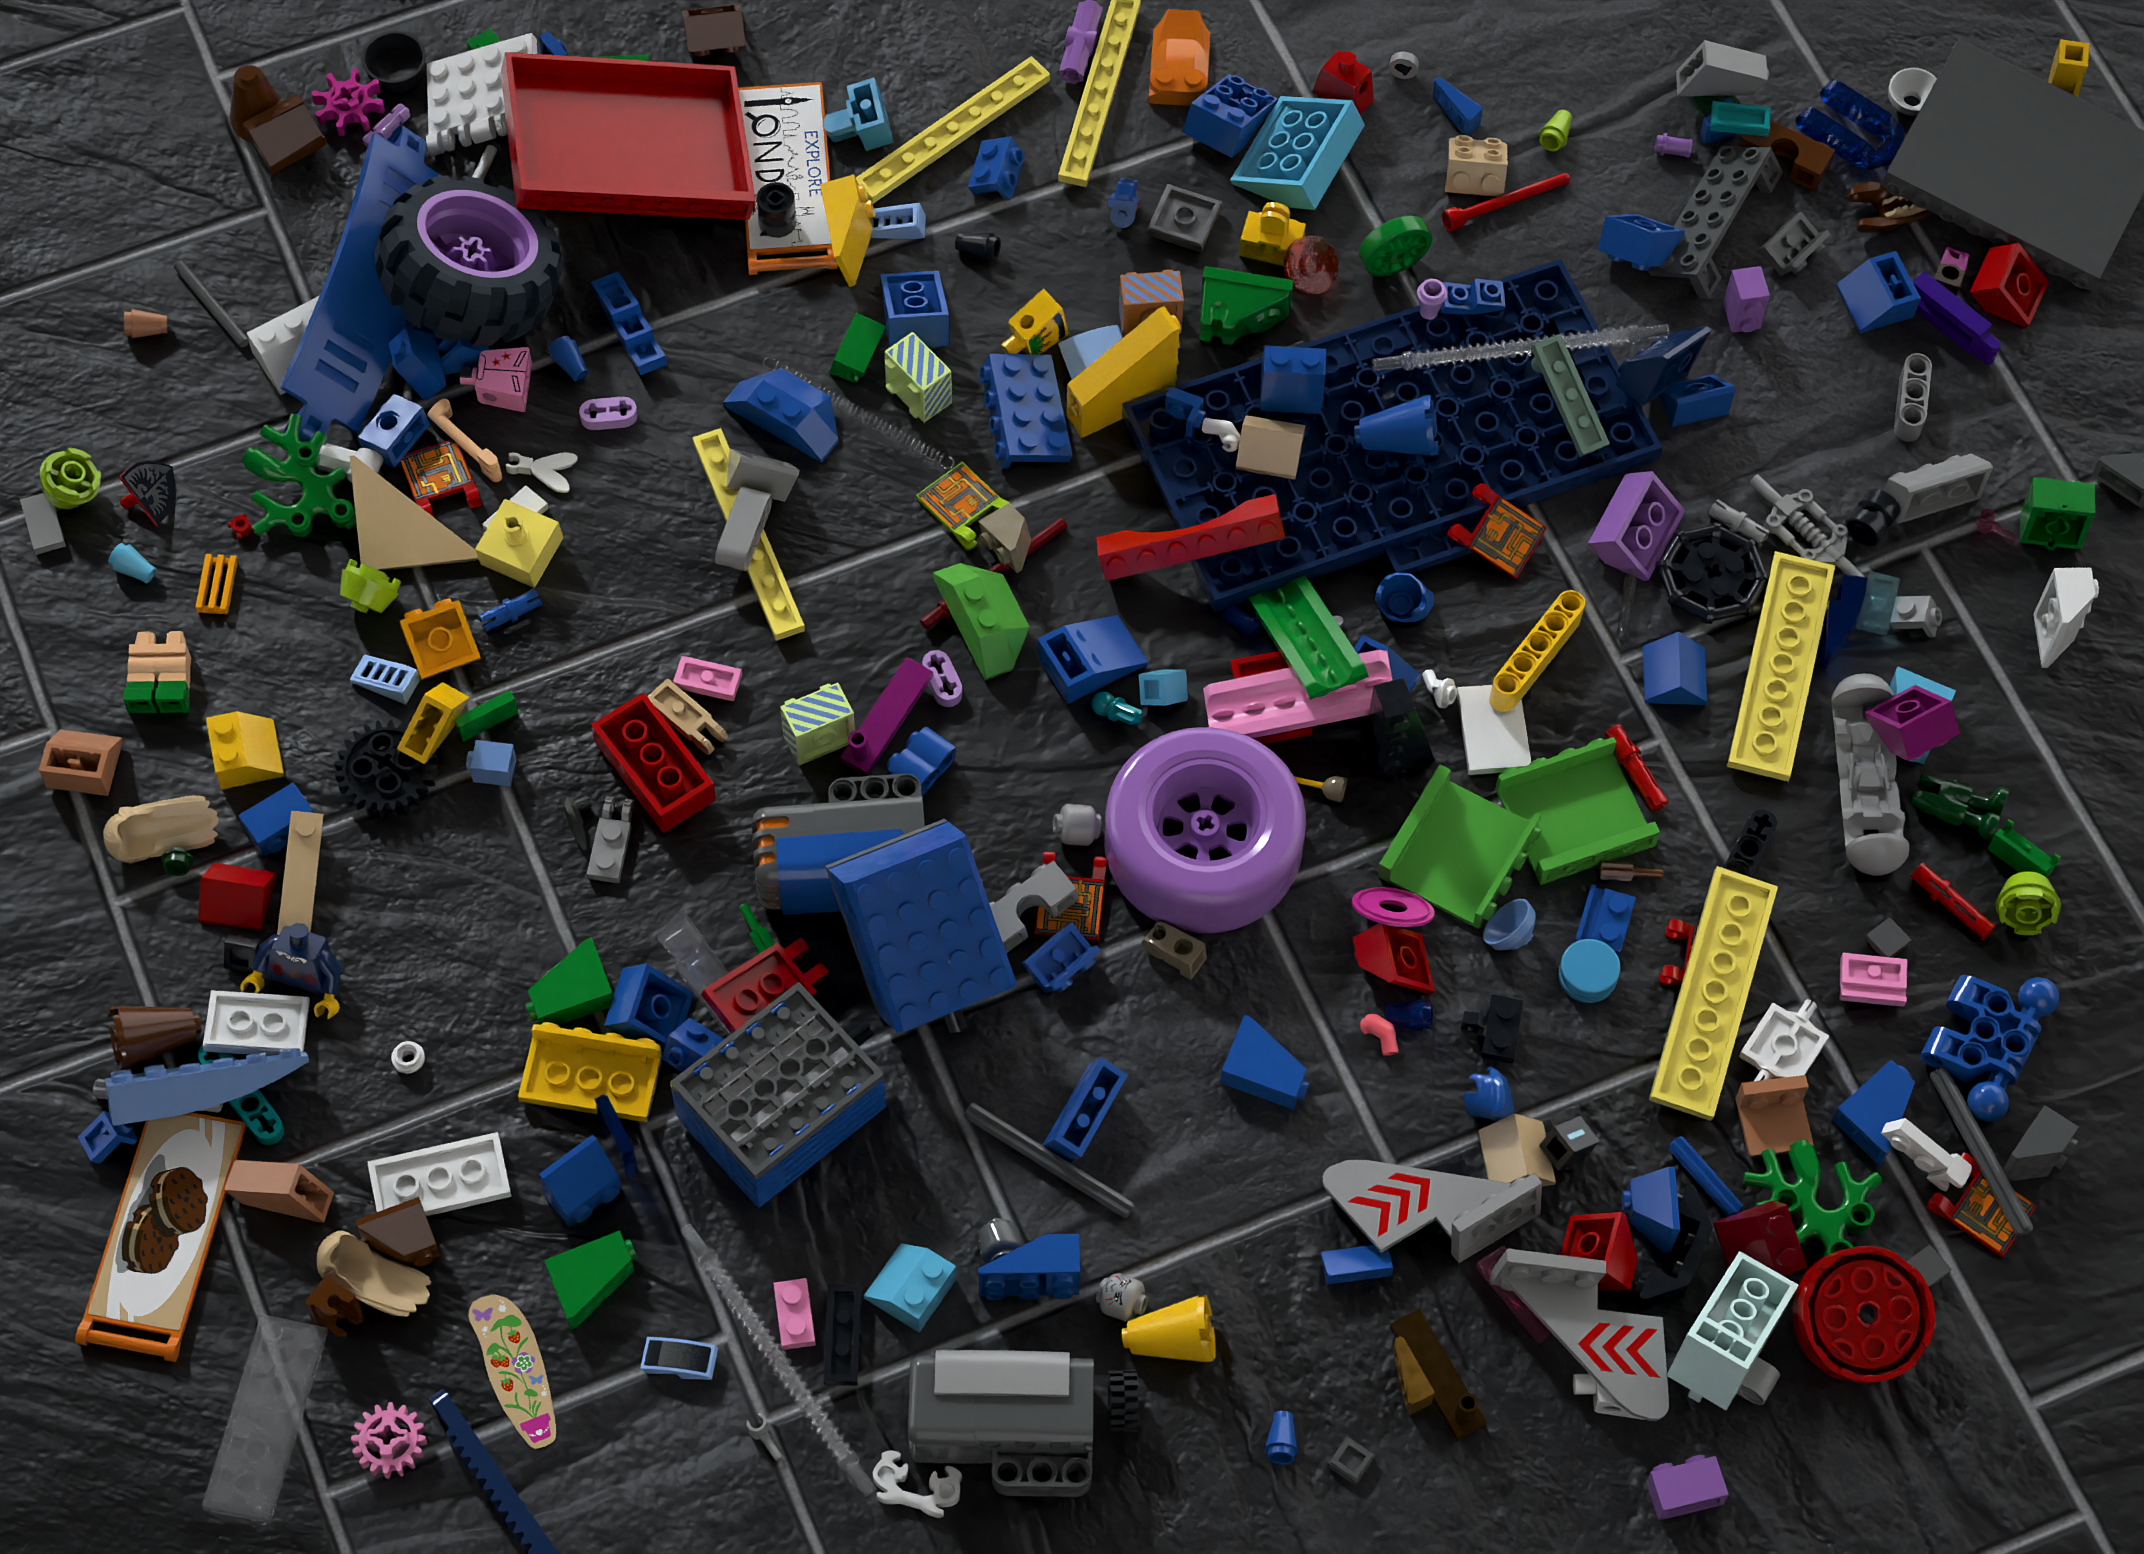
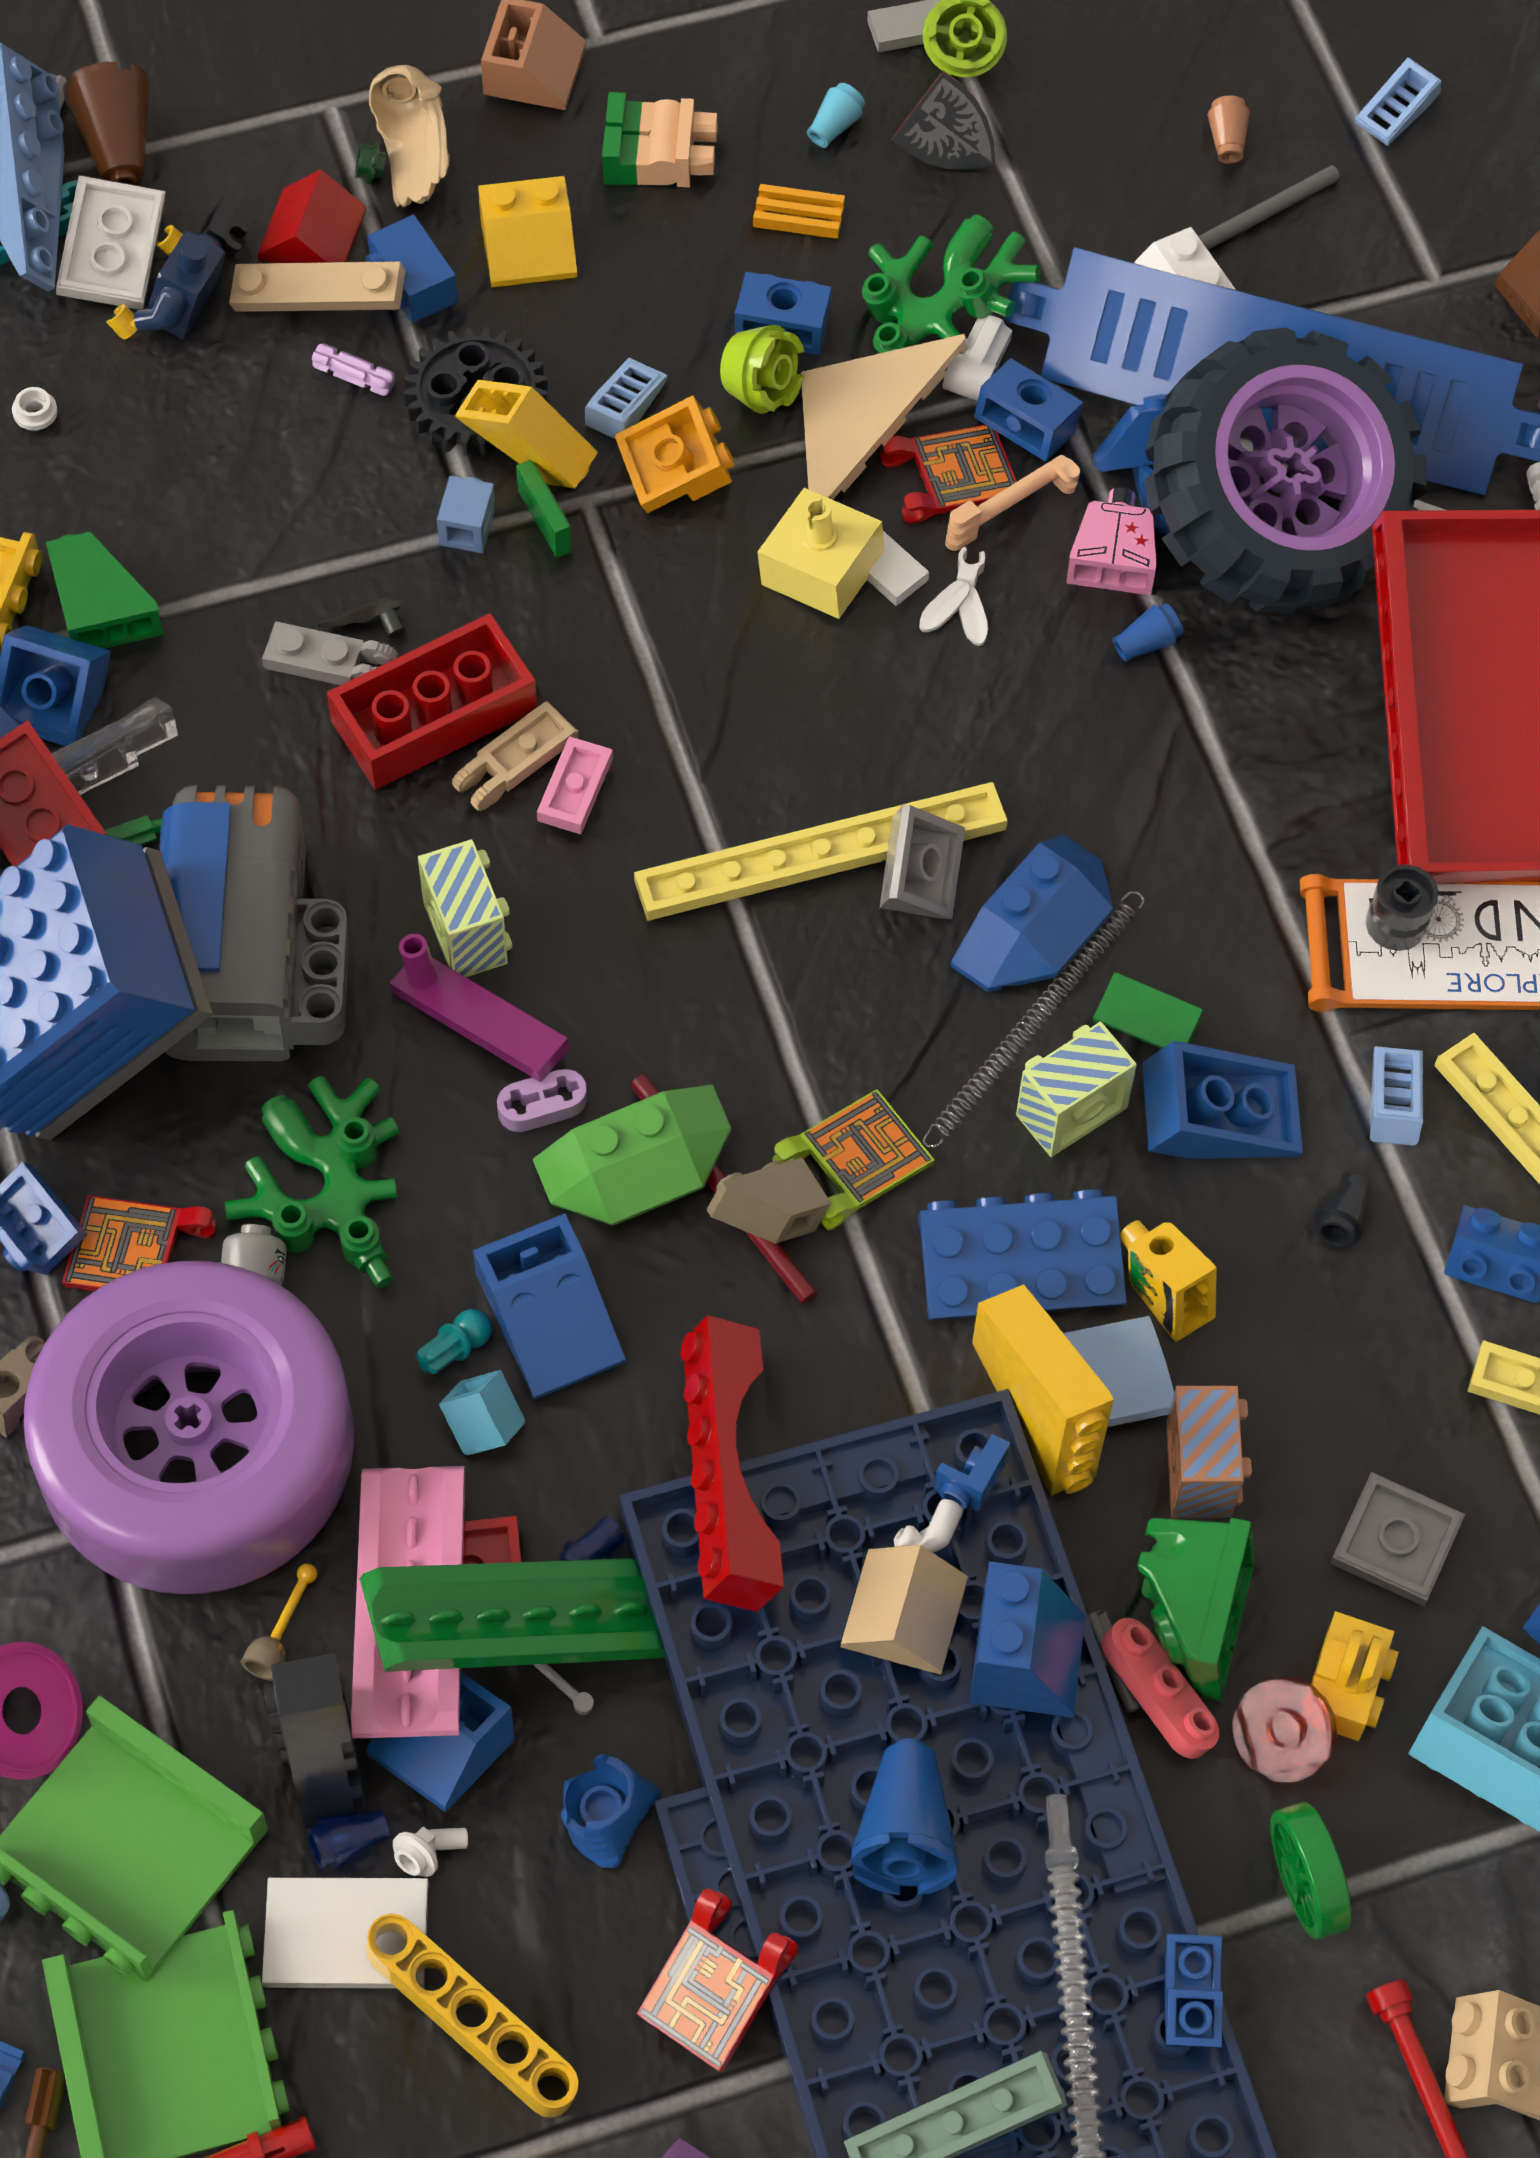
camera: 95 degrees right, 0 degrees up
(108, 207) = (1417, 78): none -> light blue slope
(241, 526) = (892, 238): red piece -> none
(316, 598) = (792, 304): none -> blue brick
(365, 852) = (353, 369): none -> lavender axle
(510, 610) = (719, 546): blue pin -> none
(608, 413) = (1042, 683): lavender beam -> none
(629, 323) = (1205, 717): blue slope -> none
(743, 528) = (812, 830): light grey beam -> none
(848, 223) = (1363, 1004): yellow slope -> none
(925, 757) = (392, 1054): blue brick -> none
(993, 790) = (337, 1156): none -> green plant
(1045, 888) = (102, 1147): light grey arch -> none
(1124, 203) = (1425, 1437): blue hips -> none
(1294, 326) = (1160, 1688): none -> coral plate
(1431, 297) = (1178, 1890): lavender cone -> none
(1441, 734) = (346, 1836): none -> clear blue cone

